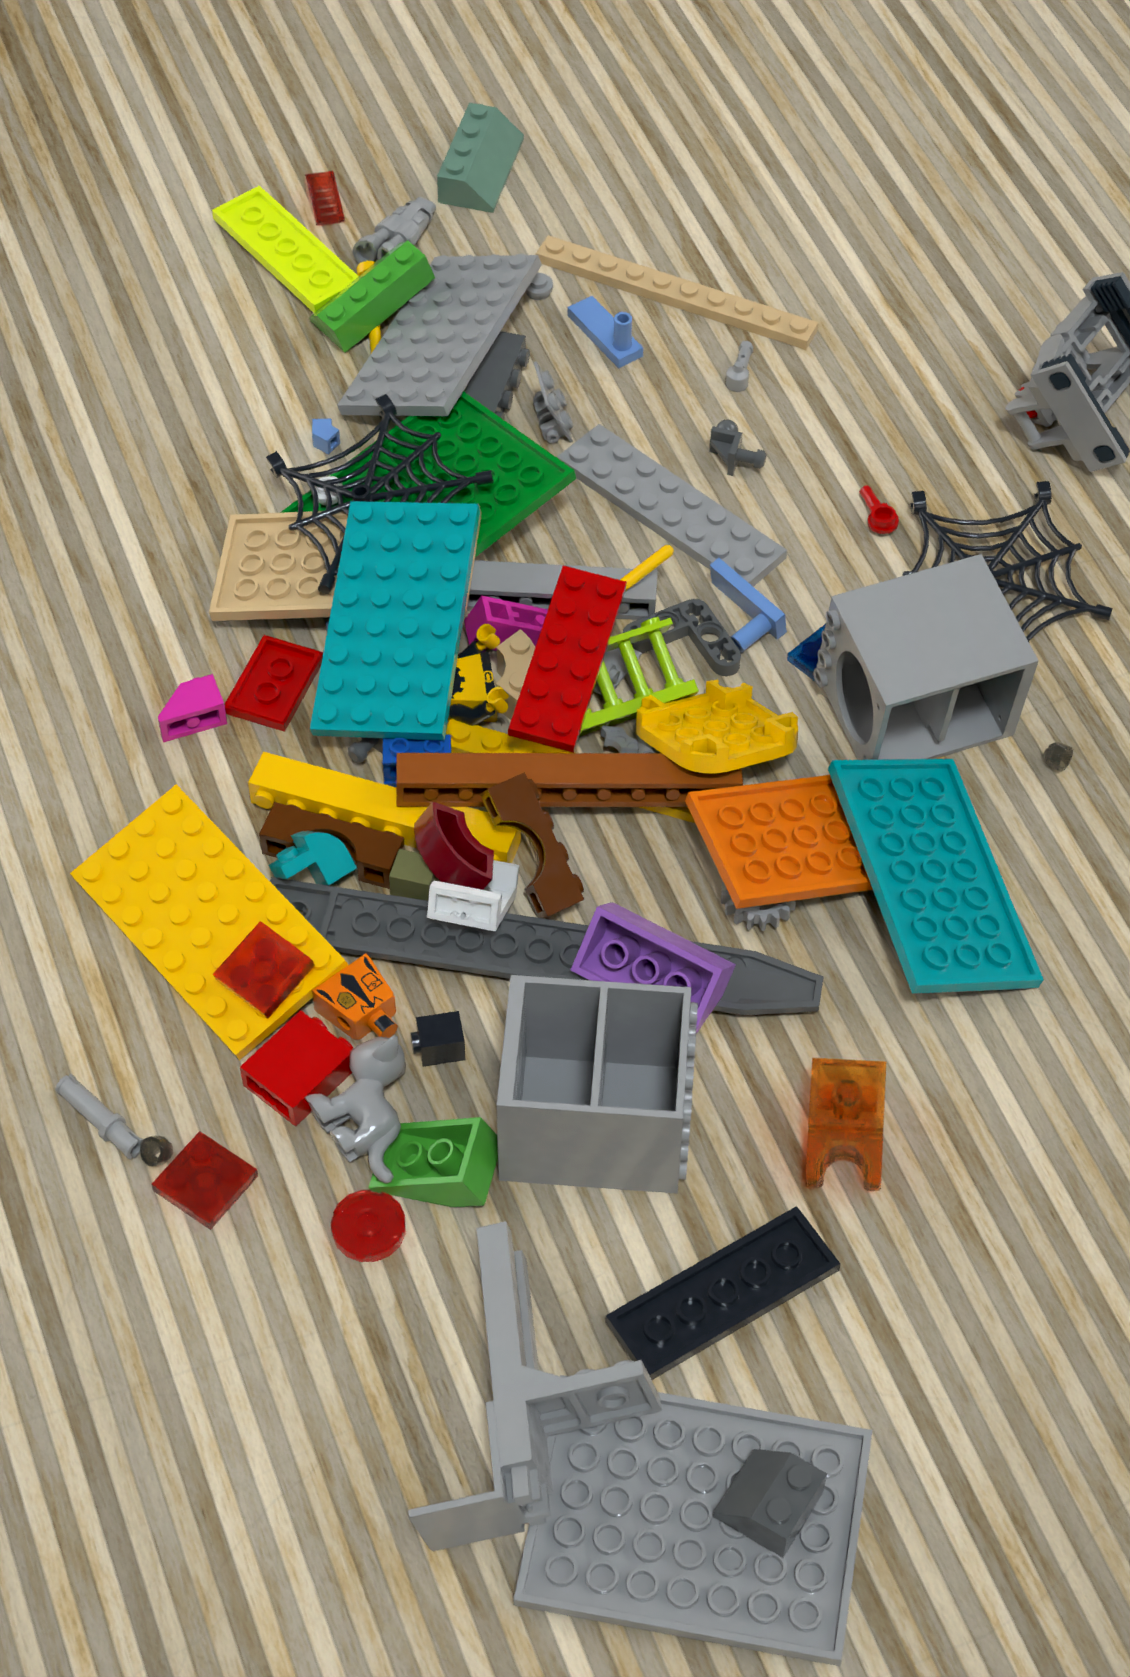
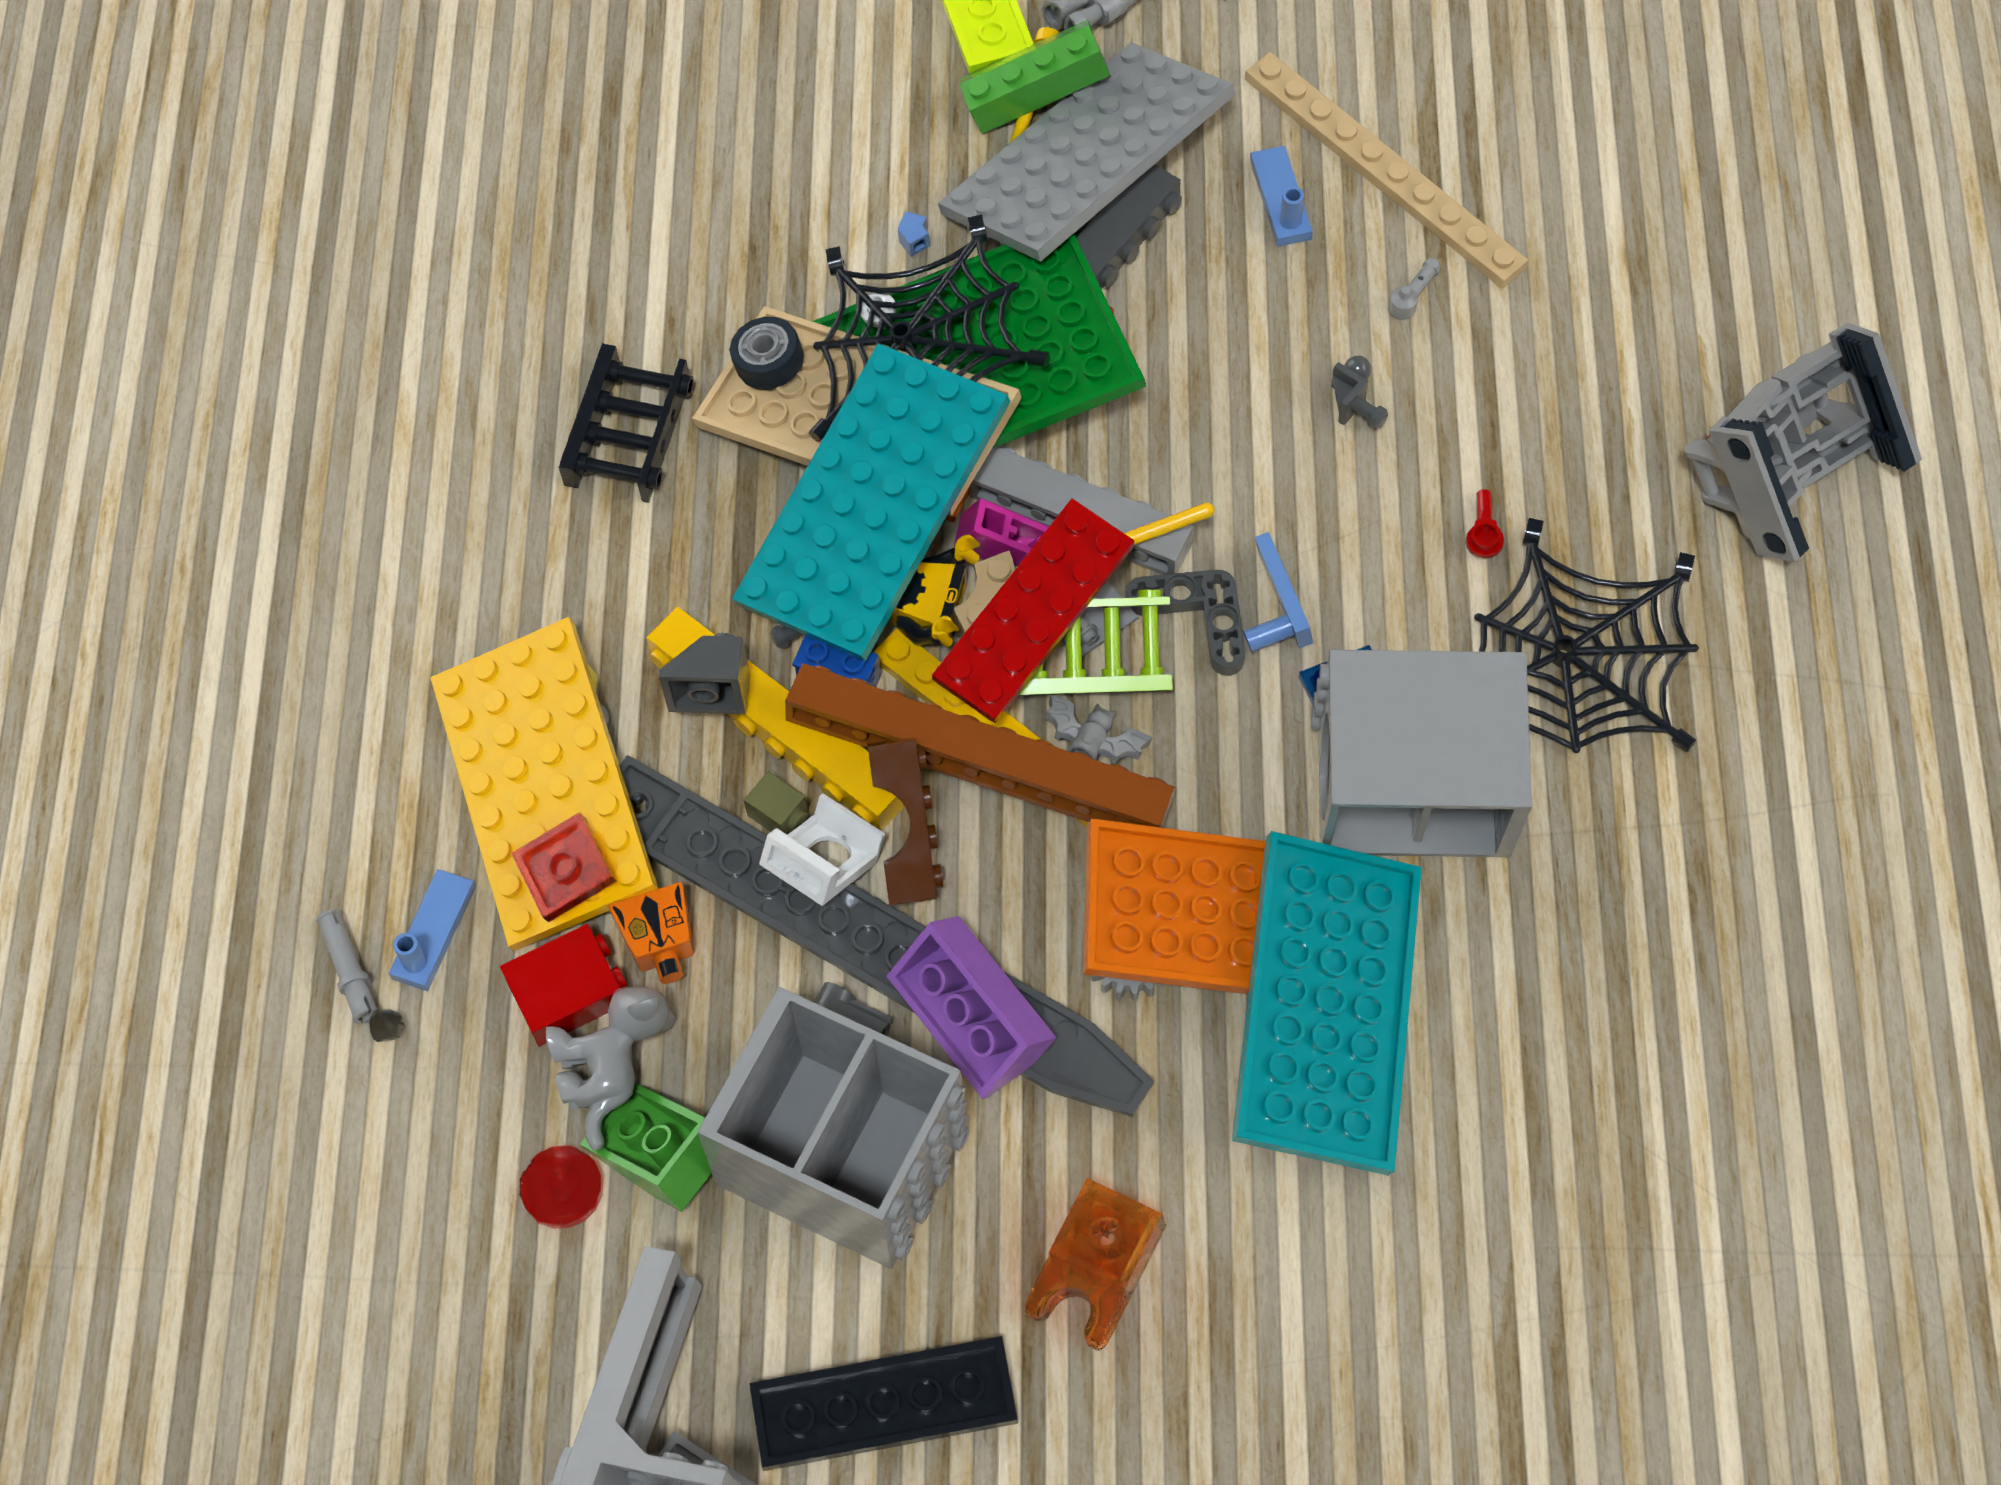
camera: 25 degrees right, 10 degrees up
(122, 625) = (599, 400): none -> black fence
(161, 1066) = (431, 931): none -> medium blue piece
(192, 709) = (631, 526): dark pink slope -> none
(204, 1180) = (422, 1075): clear red plate -> none
(253, 543) = (766, 352): none -> black wheel
(274, 683) = (730, 521): red tile -> none
(319, 852) = (682, 742): teal brick -> none
(323, 787) = (708, 677): none -> dark grey slope
(369, 848) = (743, 758): reddish brown arch -> none
(439, 1039) = (719, 1004): black brick -> none
(452, 849) = (815, 799): dark red brick -> none
(540, 287) = (1232, 115): light grey plate -> none
(549, 408) = (1172, 278): light grey hinge -> none
(670, 505) = (1255, 445): light grey plate -> none
(716, 729) = (1165, 747): yellow tile -> none
(1058, 756) = (1545, 903): clear smoke hinge -> none

